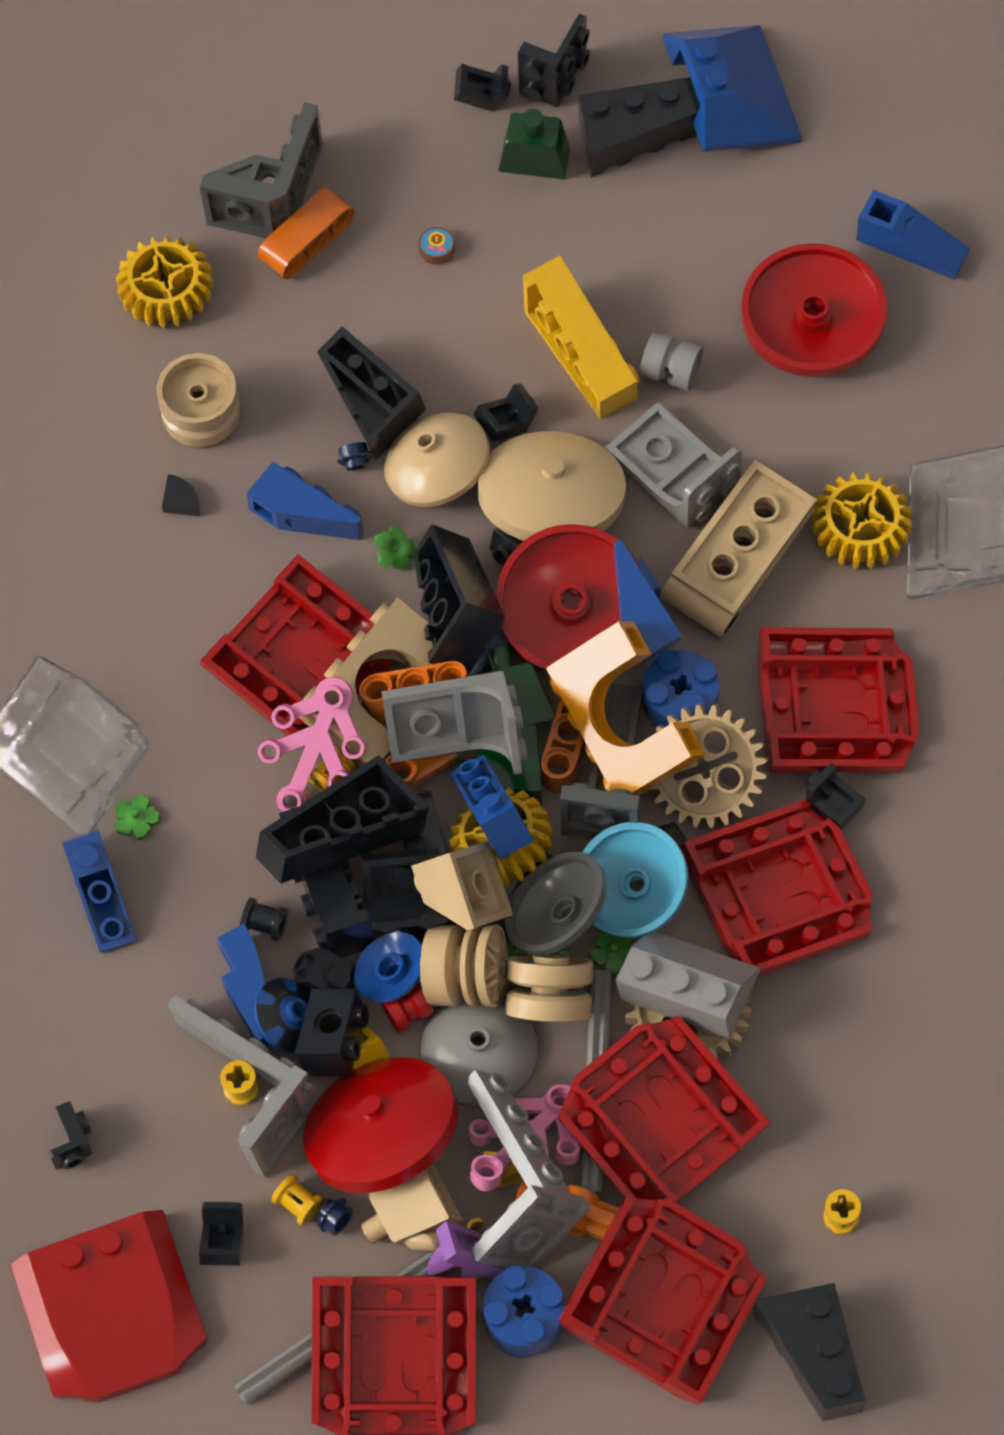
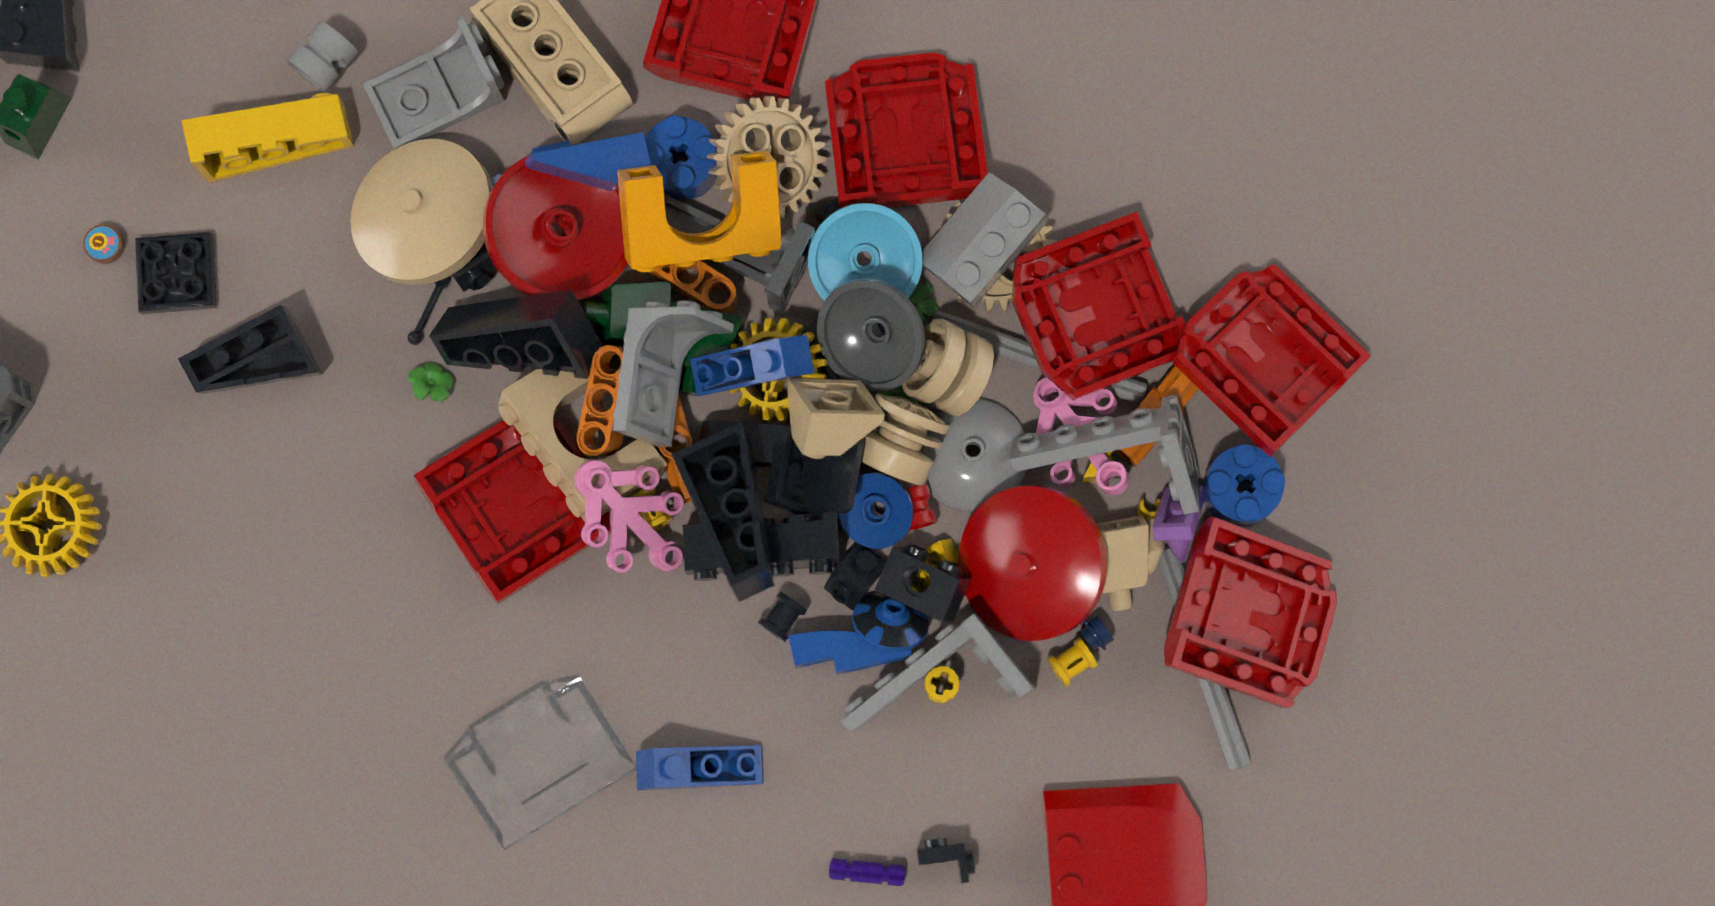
camera: 75 degrees left, 15 degrees up
(40, 1070) = (867, 872): none -> dark purple axle
(135, 818) = (631, 712): bright green plant -> none
(180, 497) = (298, 576): black tile -> none
(198, 400) = (179, 520): tan wheel -> none
(221, 1233) = (1086, 742): black bracket -> none
(296, 506) = (350, 465): blue slope -> none
(306, 233) = (43, 368): orange beam -> none
(354, 456) = (315, 392): dark blue plate -> none
(429, 311) = (175, 273): none -> black tile
(436, 459) = (369, 307): tan dish -> none
(461, 527) = (415, 336): none -> black hinge
(507, 415) = (323, 230): black bracket -> none
(816, 1346) = (1350, 240): black wedge -> none
(832, 796) = (830, 55): black bracket -> none
(851, 1206) = (1241, 178): yellow bush -> none

